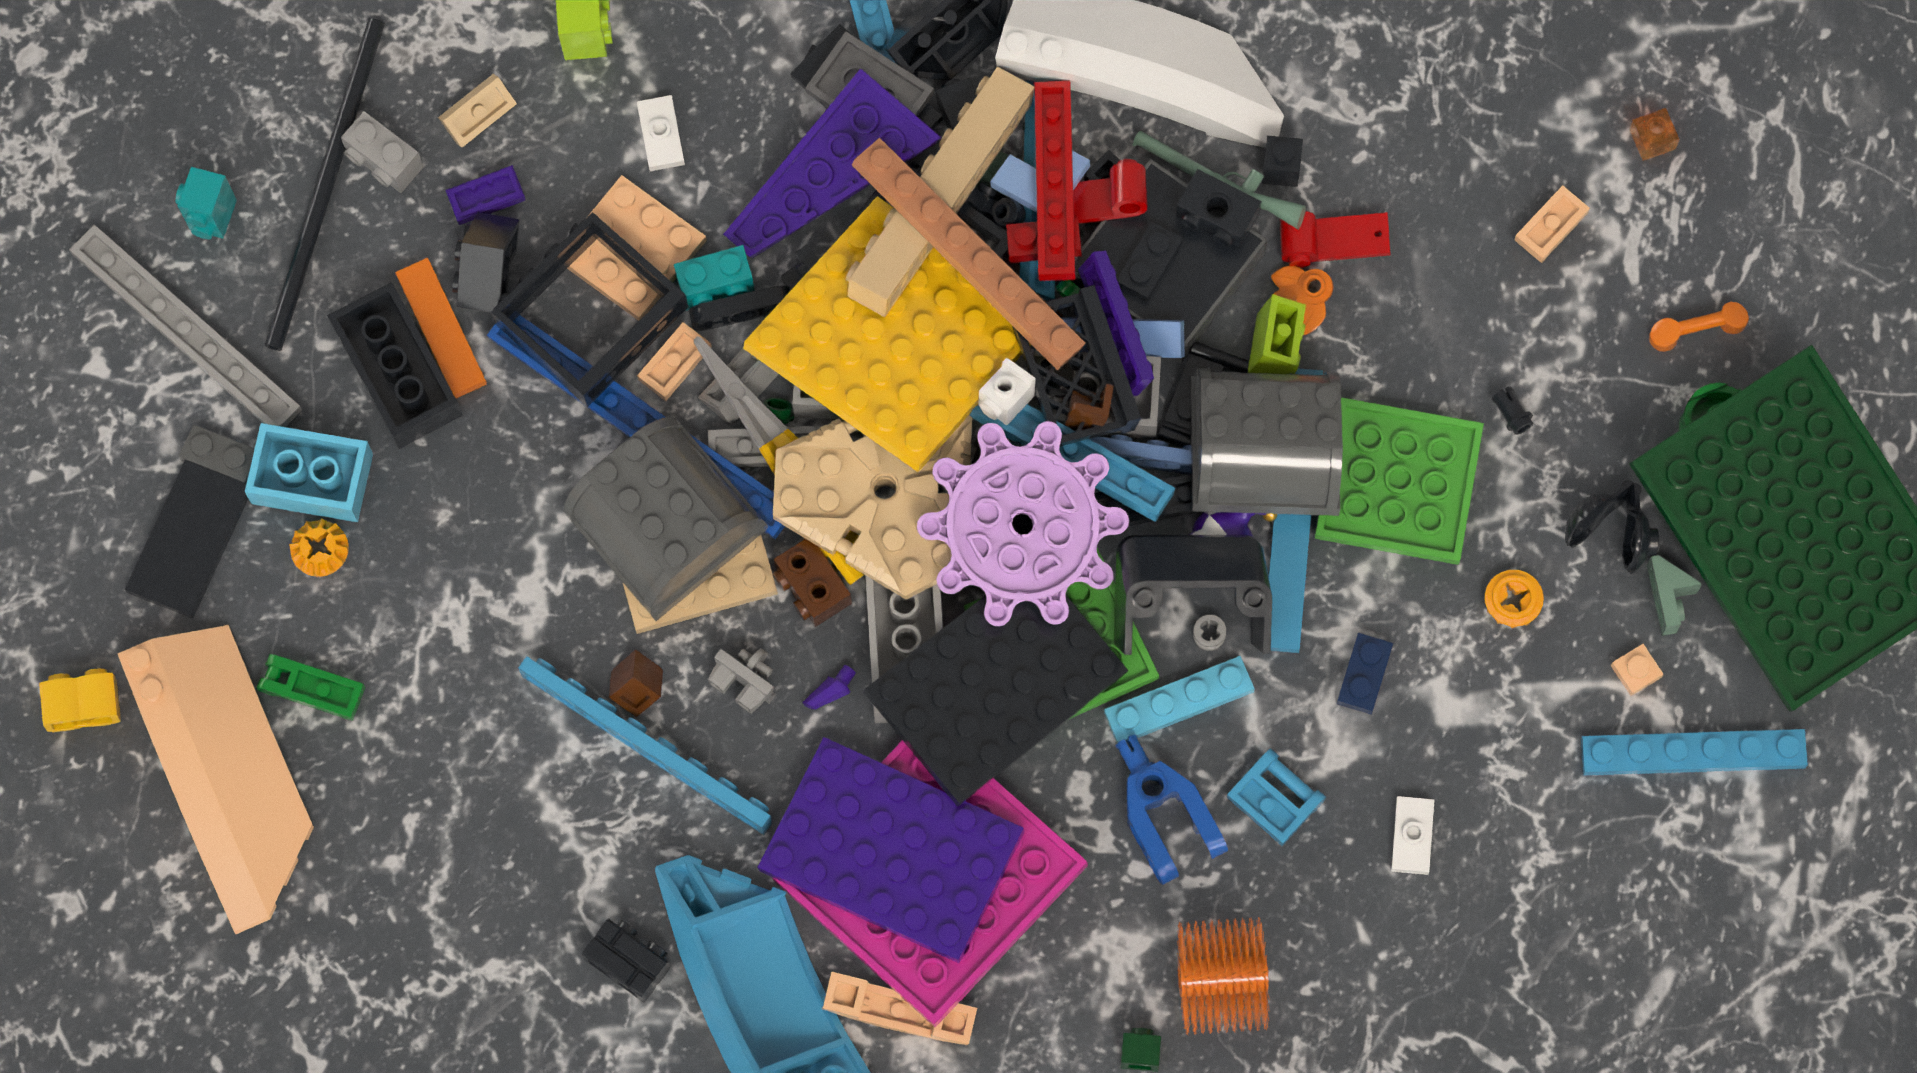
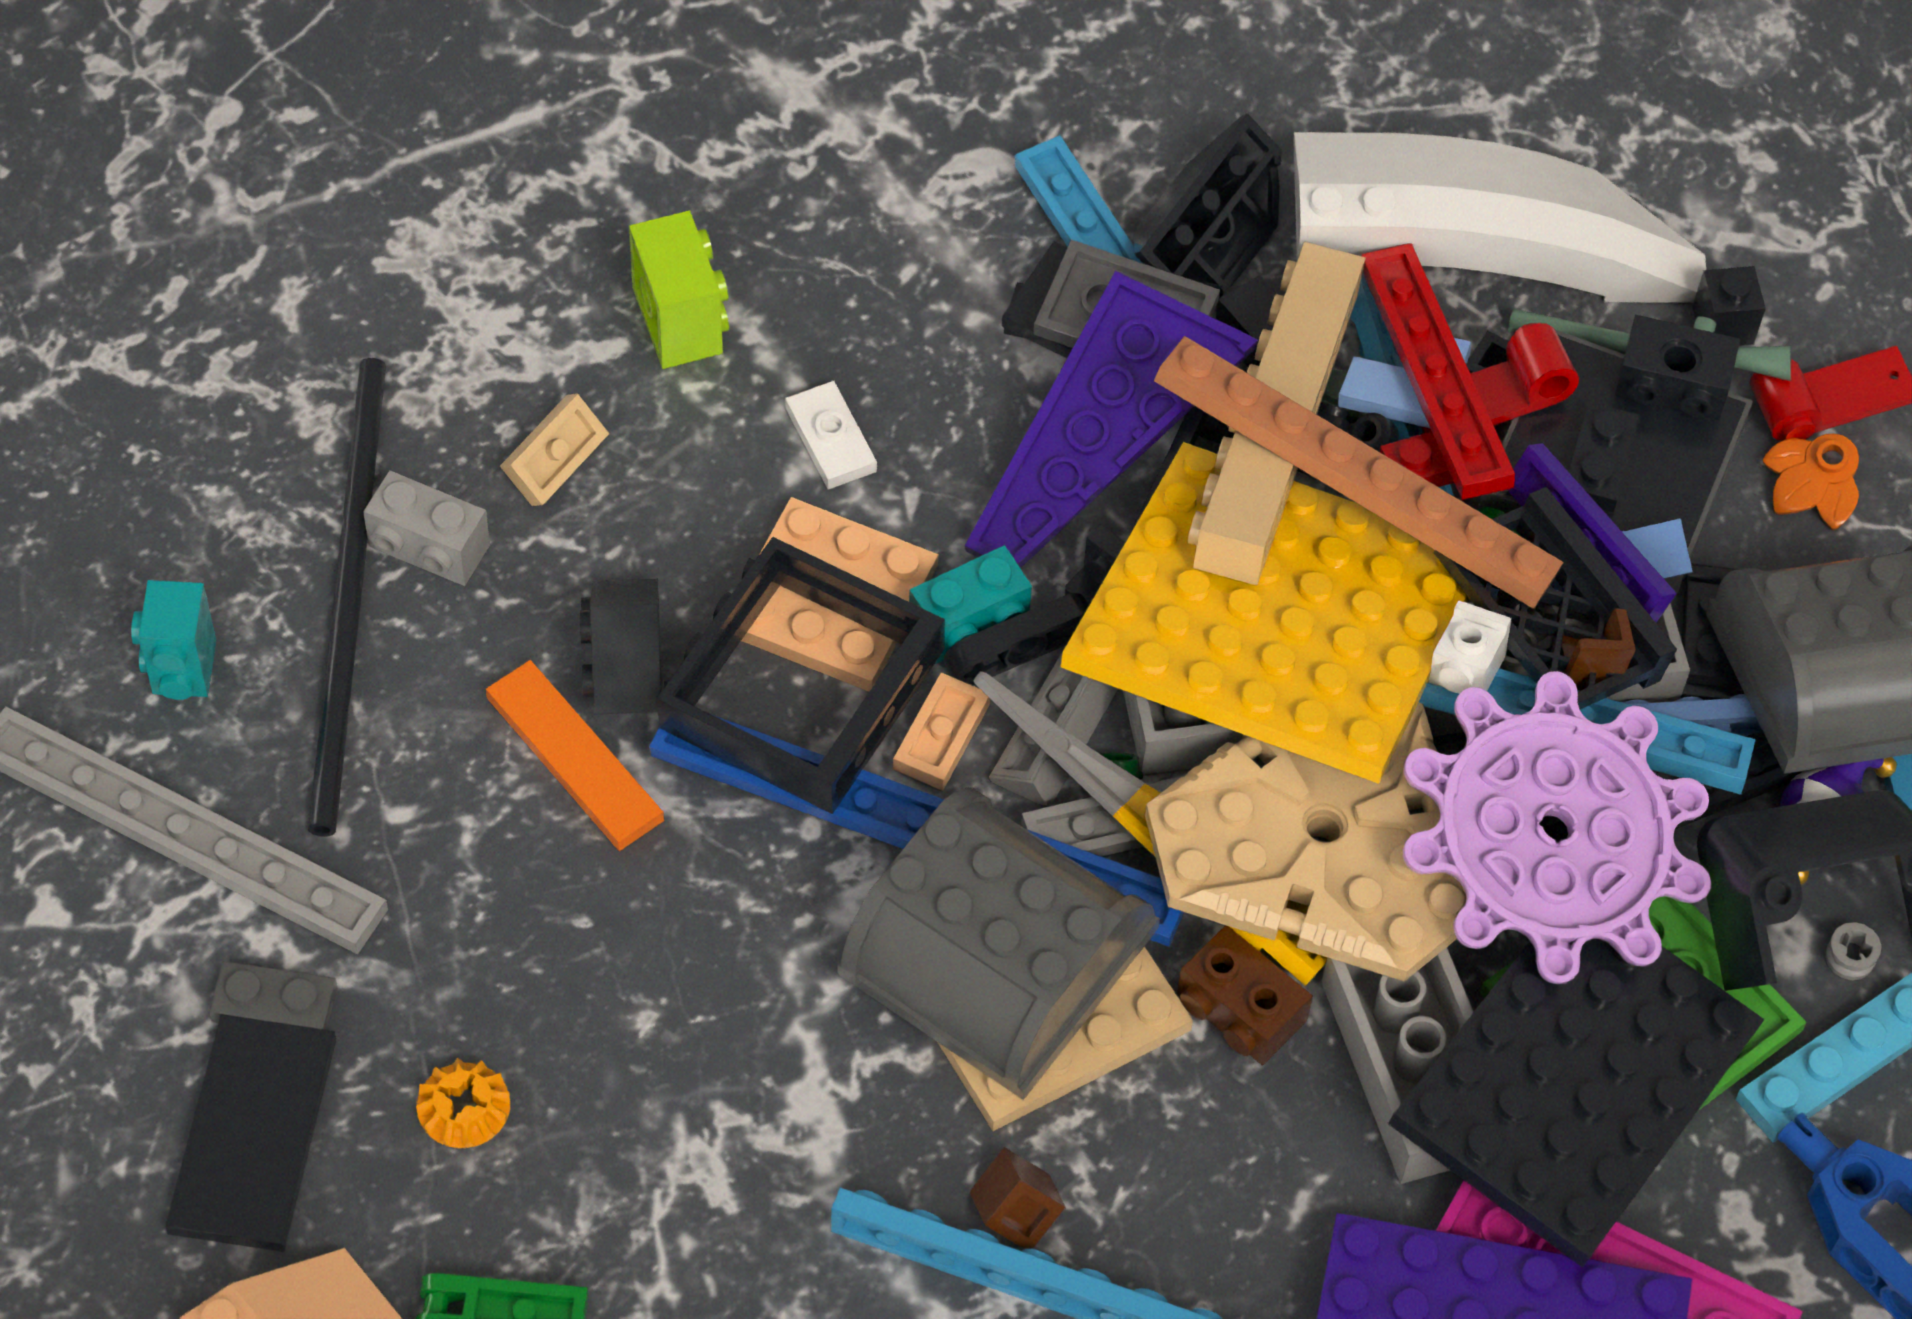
camera: 20 degrees left, 15 degrees down
(309, 472) = (424, 990): medium azure brick -> none
(395, 365) = (522, 812): black brick -> none
(485, 194) = (601, 554): dark purple plate -> none
(729, 670) = (1185, 1149): light grey hips -> none
(830, 689) = (1317, 1148): dark purple bar -> none
(1277, 337) = (1810, 520): lime brick -> none

